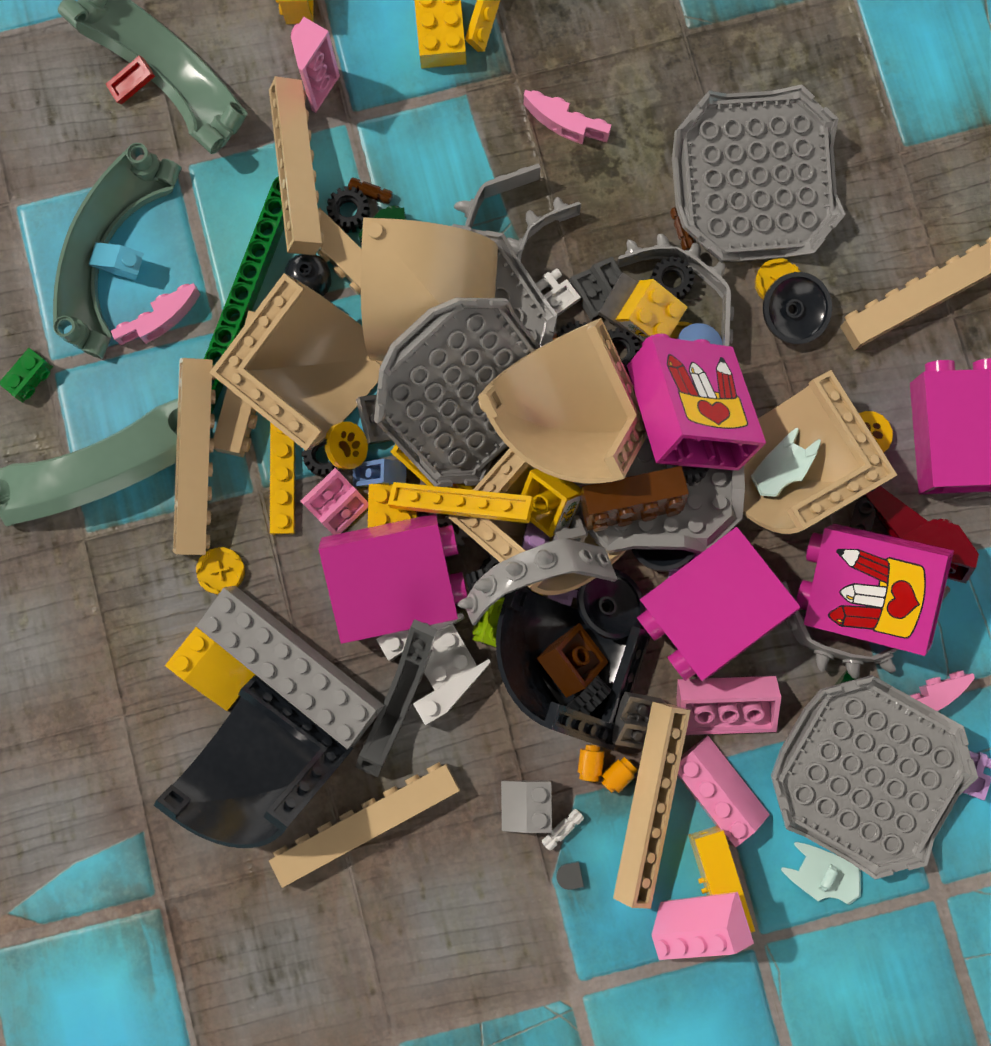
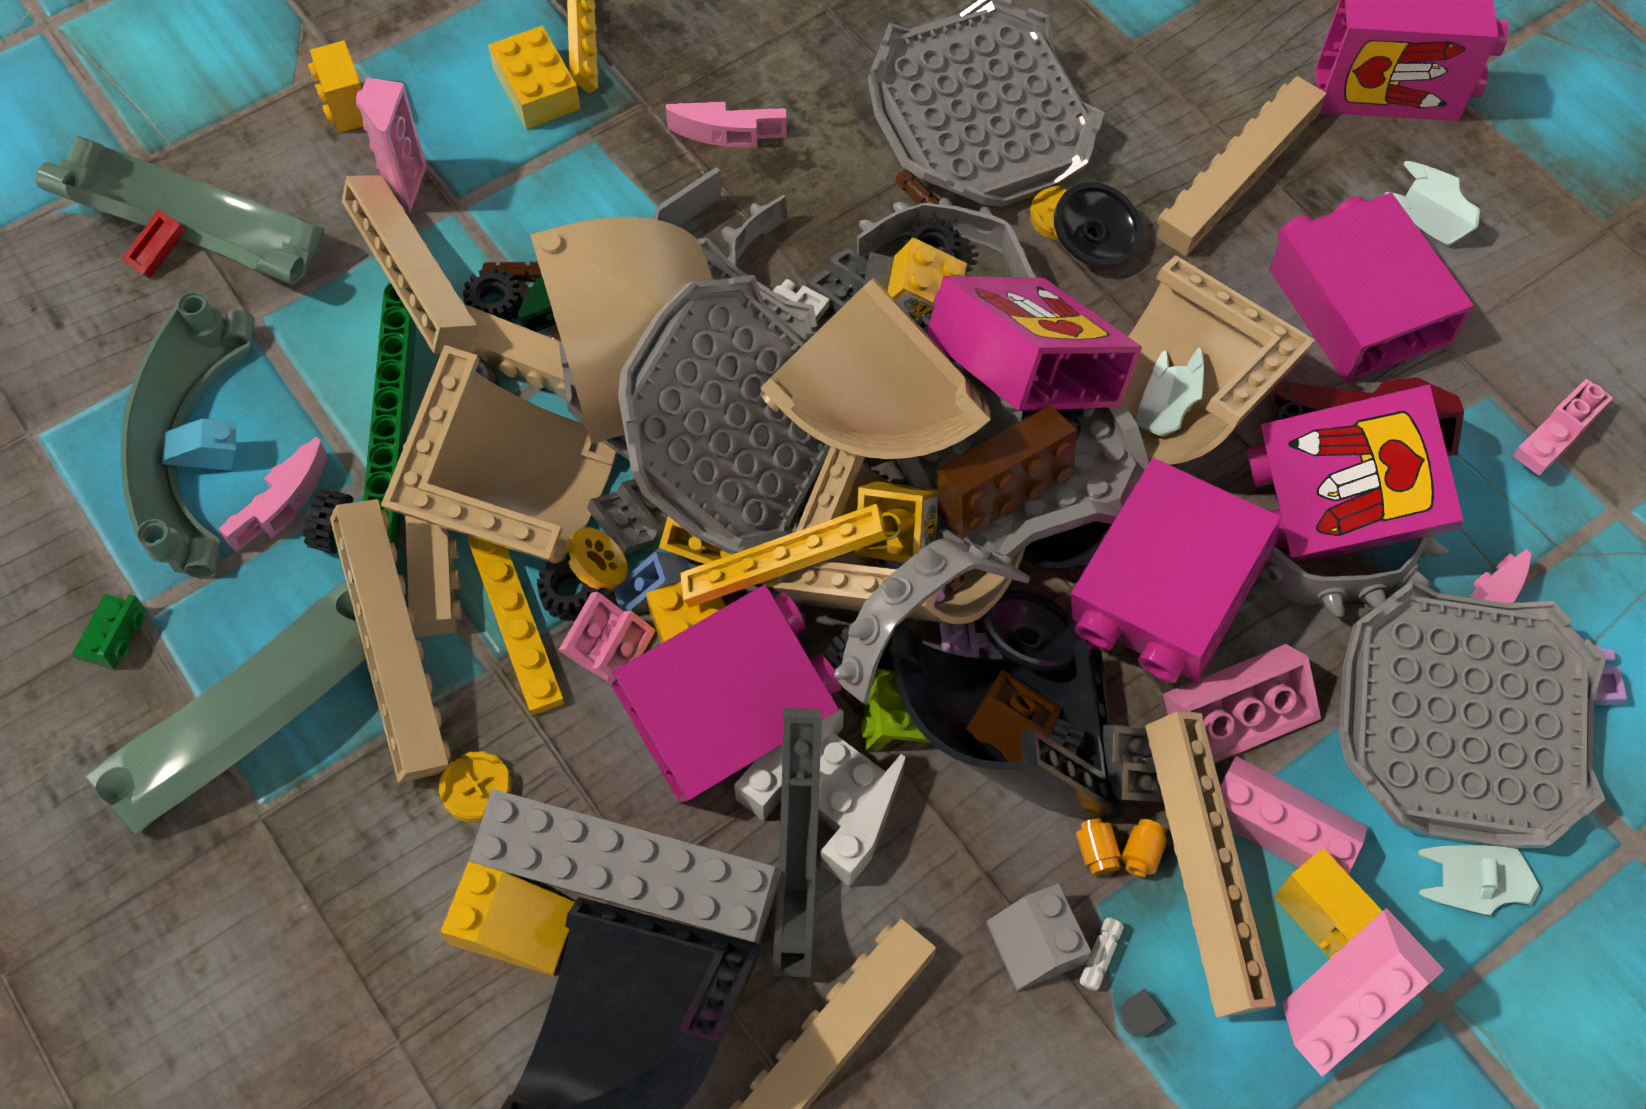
camera: 25 degrees left, 20 degrees down
(184, 345) = (318, 529): none -> black tyre

